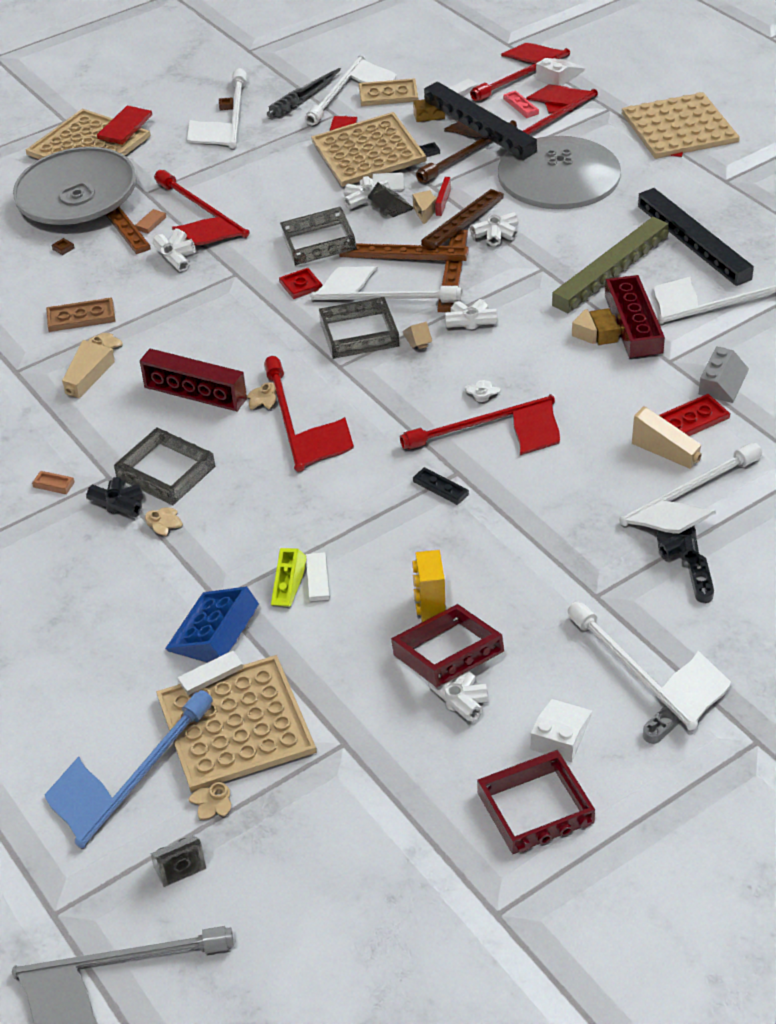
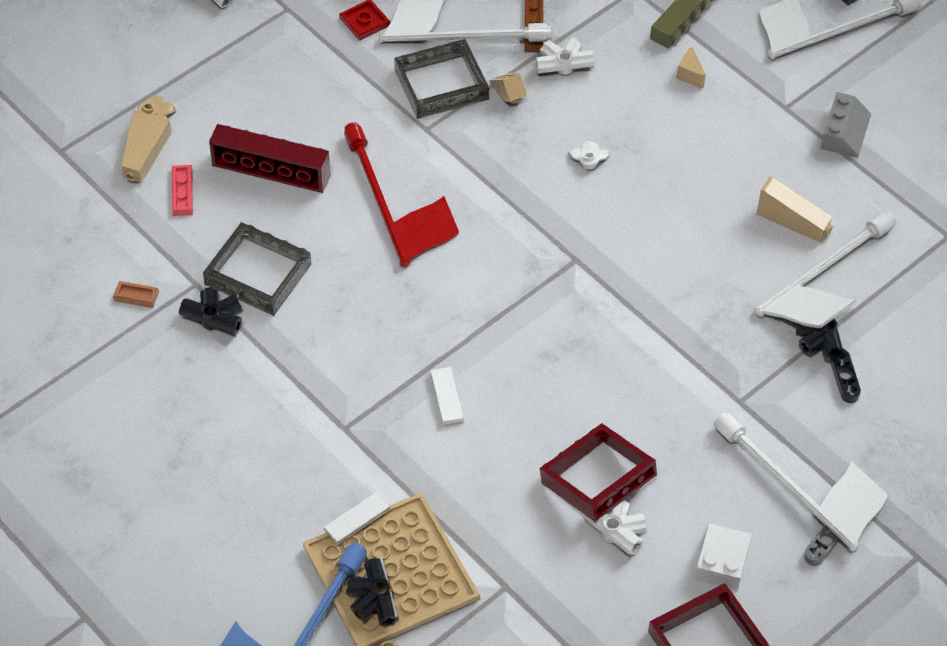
camera: 10 degrees left, 10 degrees up
(80, 314) = (119, 71): medium nougat tile -> none
(113, 404) = (182, 190): none -> coral tile
(163, 520) = (270, 336): tan plate -> none
(211, 737) = (369, 599): none -> black piece
(214, 624) = (347, 460): blue slope -> none
(262, 395) = (345, 174): tan plate -> none
(288, 576) = (417, 400): neon yellow slope -> none
(429, 584) = (571, 406): yellow brick -> none
(440, 486) = (560, 277): black tile -> none
(532, 422) = (648, 194): red flag -> none
(606, 326) = (714, 67): pearl gold brick -> none
(635, 315) = (743, 53): dark red brick -> none
(696, 415) = (820, 176): red tile -> none

